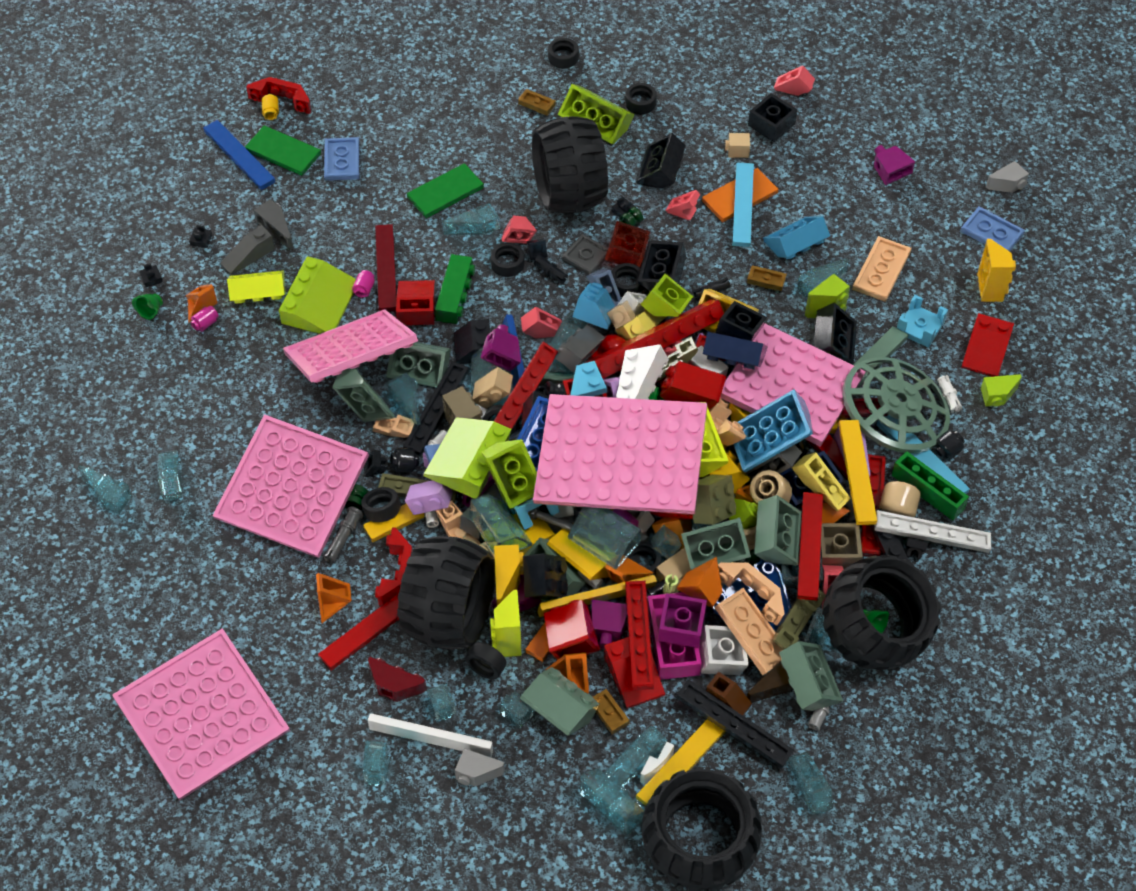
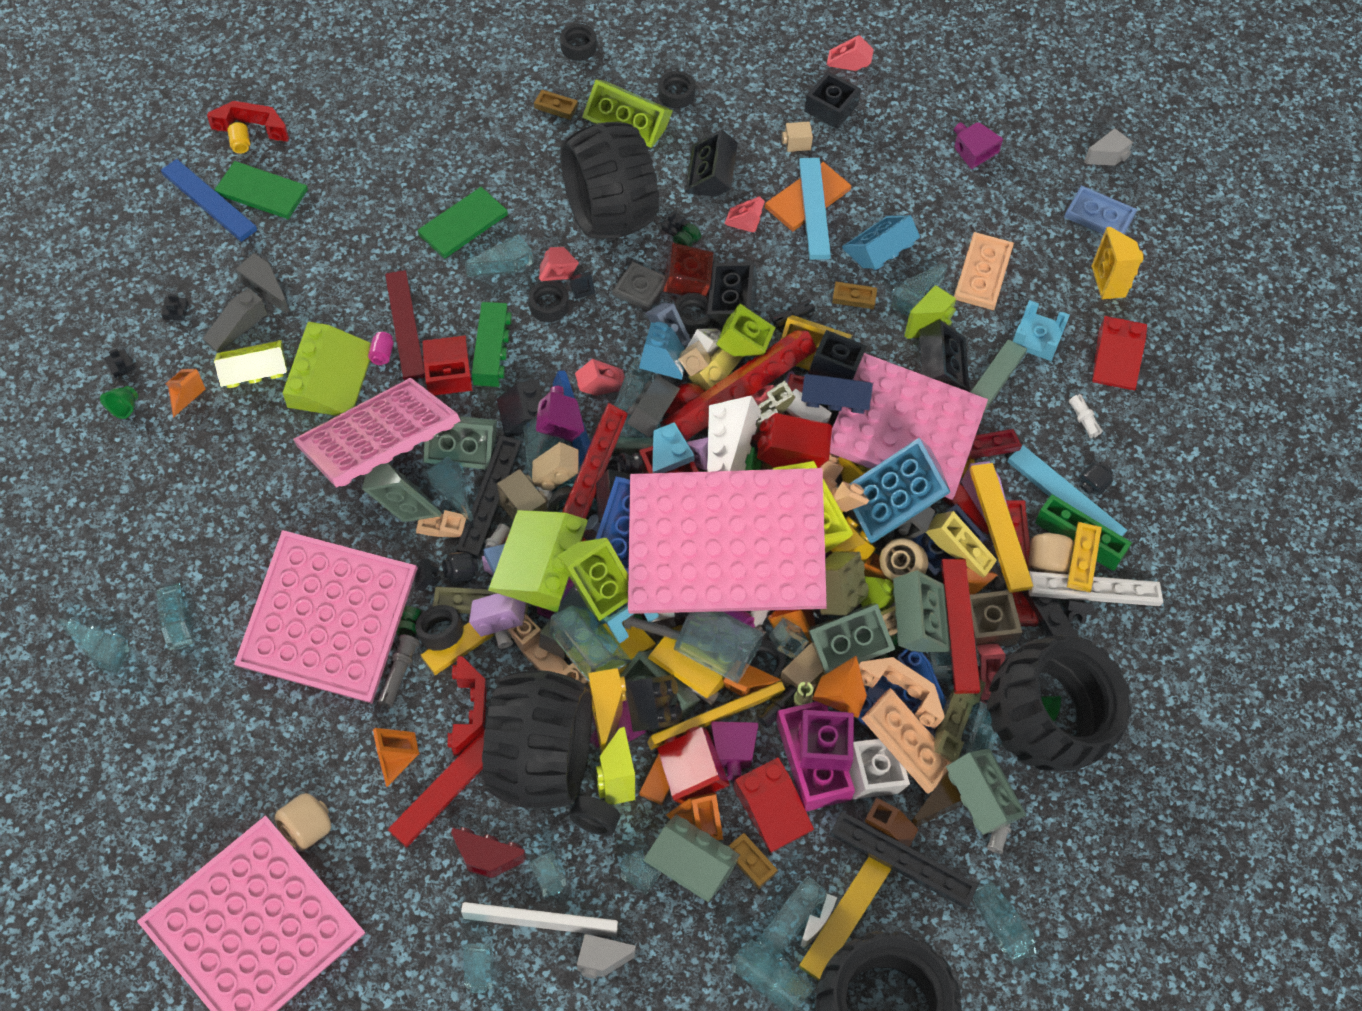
camera: 10 degrees left, 5 degrees up
(204, 318) = (192, 411): dark pink brick -> none
(252, 638) = (303, 821): none -> tan head
(341, 159) = (333, 194): medium blue tile -> none
(550, 269) = (601, 308): black pin -> none
(639, 635) = (776, 764): red tile -> none
(891, 404) = (1026, 439): sand green dish -> none
(925, 503) = (1084, 557): none -> yellow tile
(999, 389) = (1140, 404): lime slope -> none

